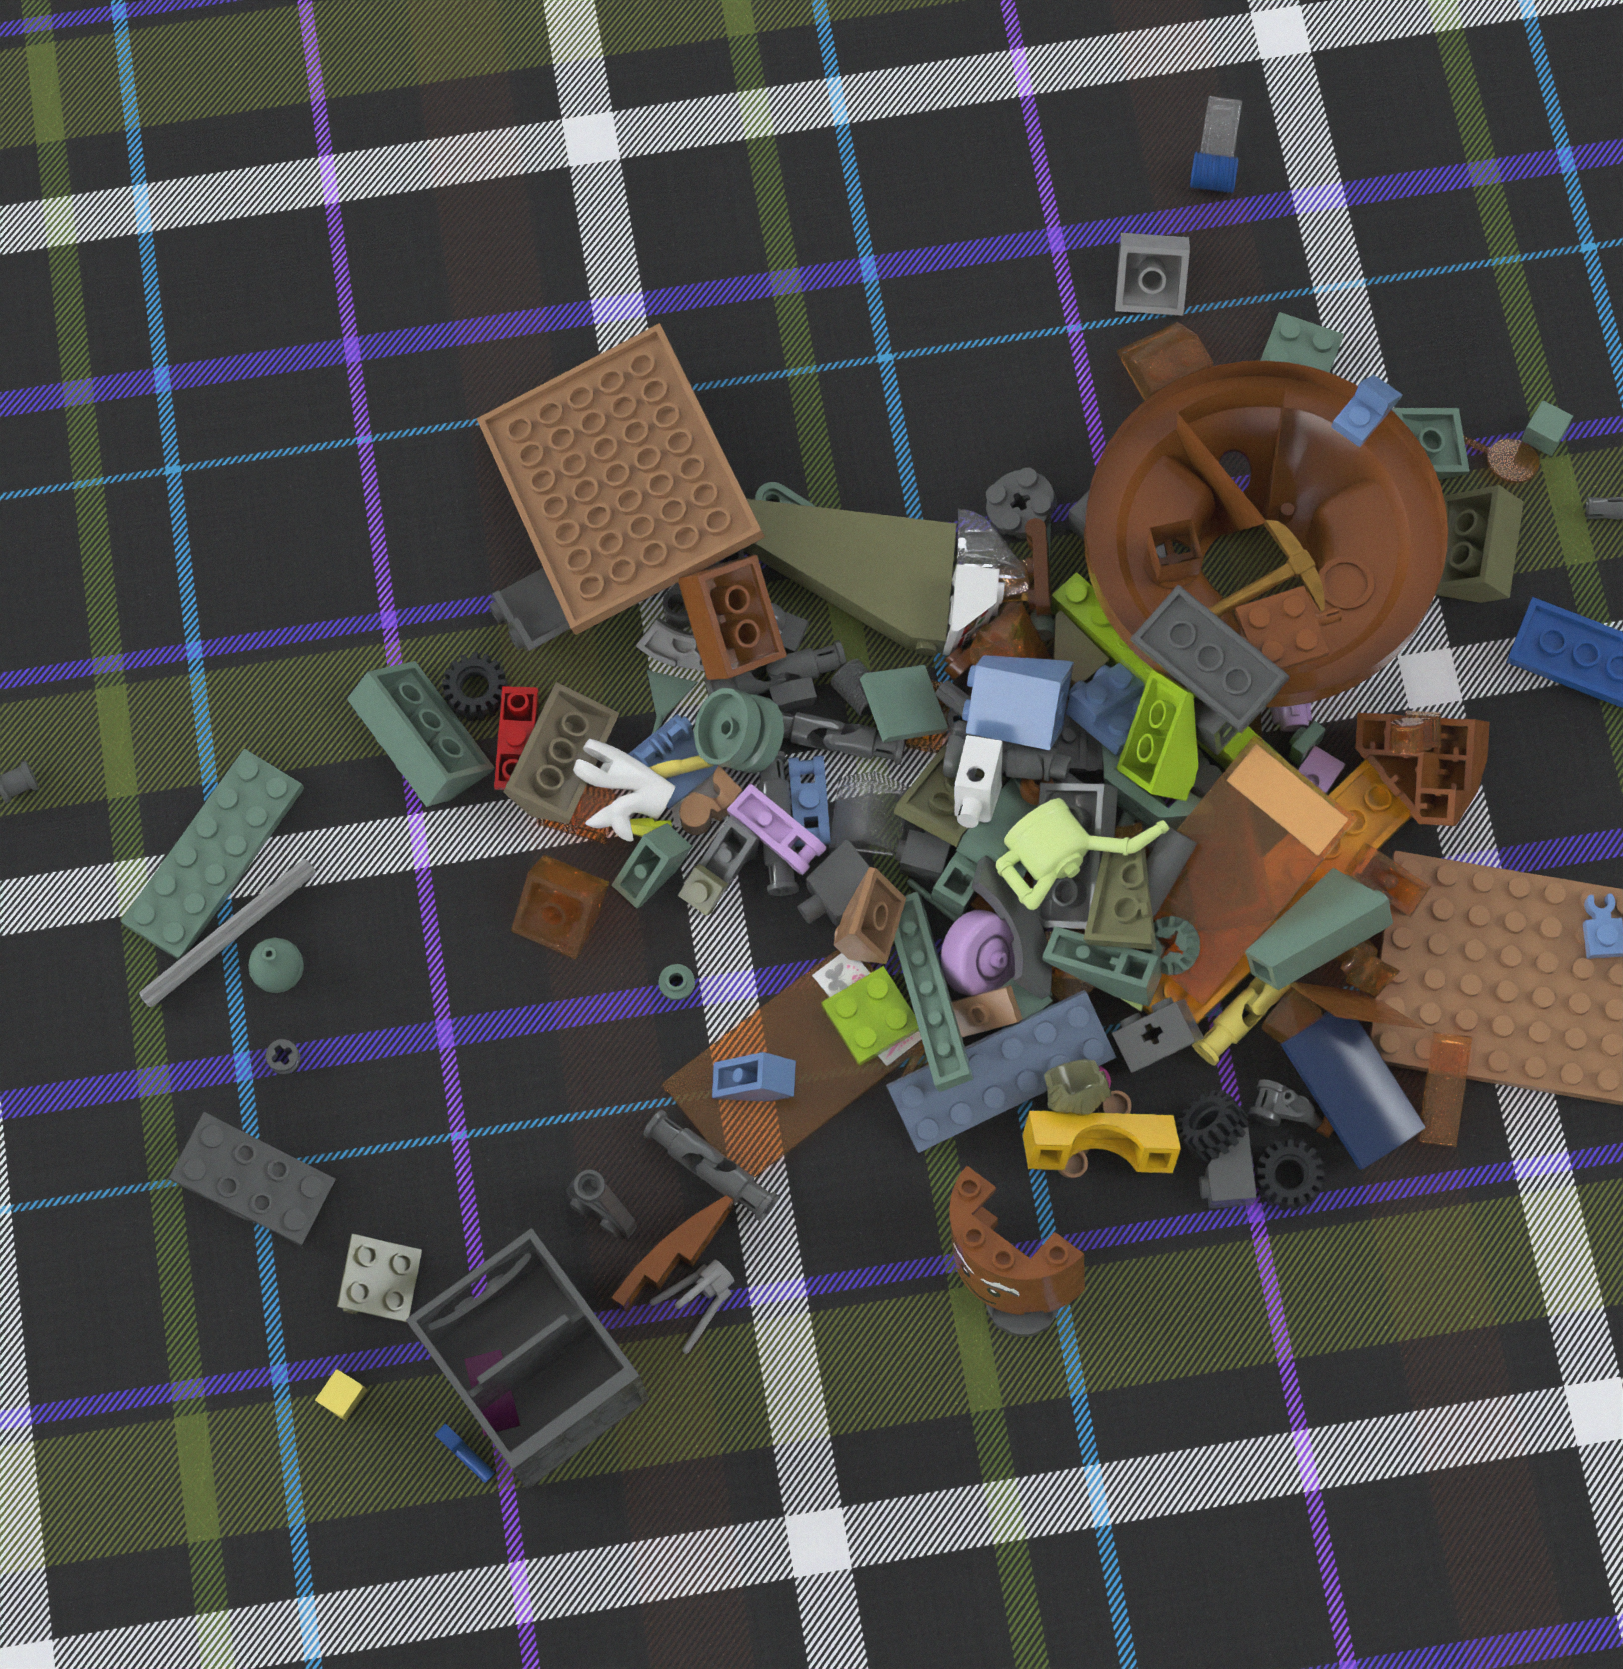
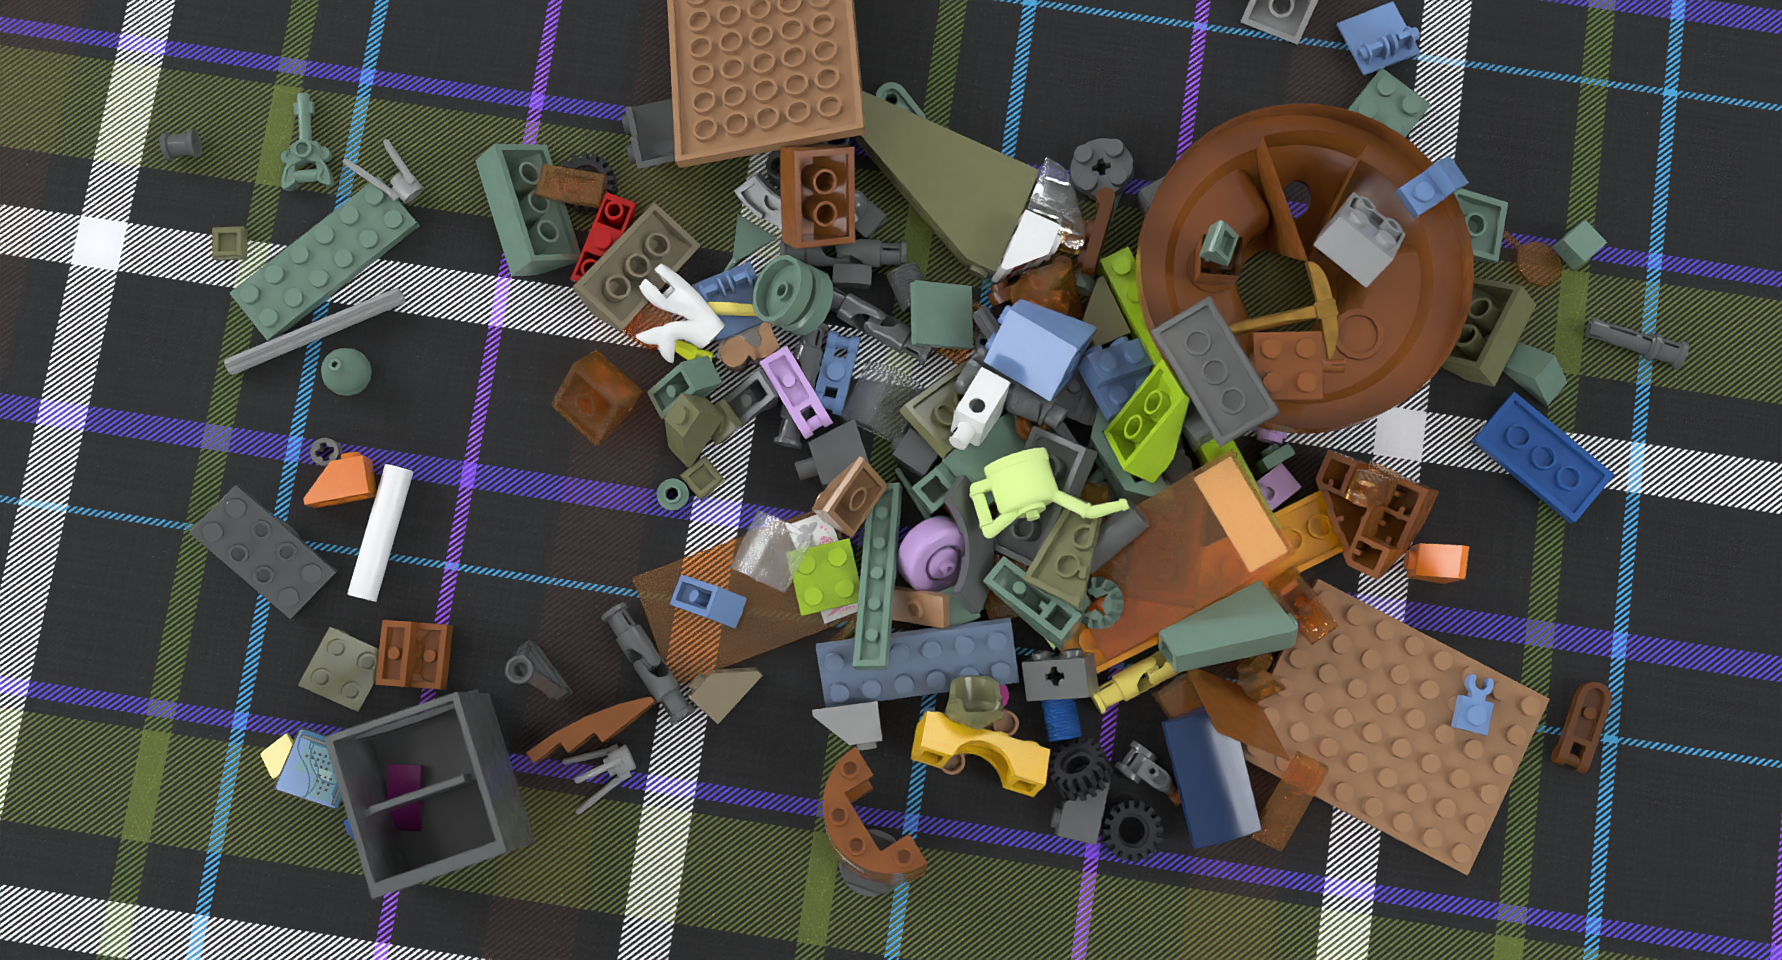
camera: 15 degrees right, 10 degrees up
(102, 870) = (229, 243): none -> olive tile
(154, 748) = (305, 151): none -> sand green piece
(278, 744) = (404, 183): none -> light grey plant
(313, 1081) = (343, 482): none -> orange slope
(371, 1121) = (380, 532): none -> white piece
(387, 1391) = (309, 771): none -> piece
(449, 1239) = (414, 654): none -> dark orange slope
(462, 691) = (571, 186): none -> clear orange plate
(674, 902) = (690, 426): none -> olive slope
(702, 955) = (702, 478): none -> olive tile
(799, 1168) = (721, 689): none -> dark tan slope
(804, 1005) = (771, 551): none -> clear slope
(950, 1155) = (853, 723): none -> light grey slope
(1164, 358) = (1269, 80): clear orange slope -> none
(1170, 531) = (1219, 243): none -> sand green slope
(1174, 1081) = (1061, 719): none -> blue piece
(1266, 283) = (1379, 38): none -> medium blue hinge
(1311, 482) = (1360, 239): none -> light grey slope
(1511, 795) = (1436, 562): none -> orange slope
(1548, 571) = (1536, 372): none -> sand green slope

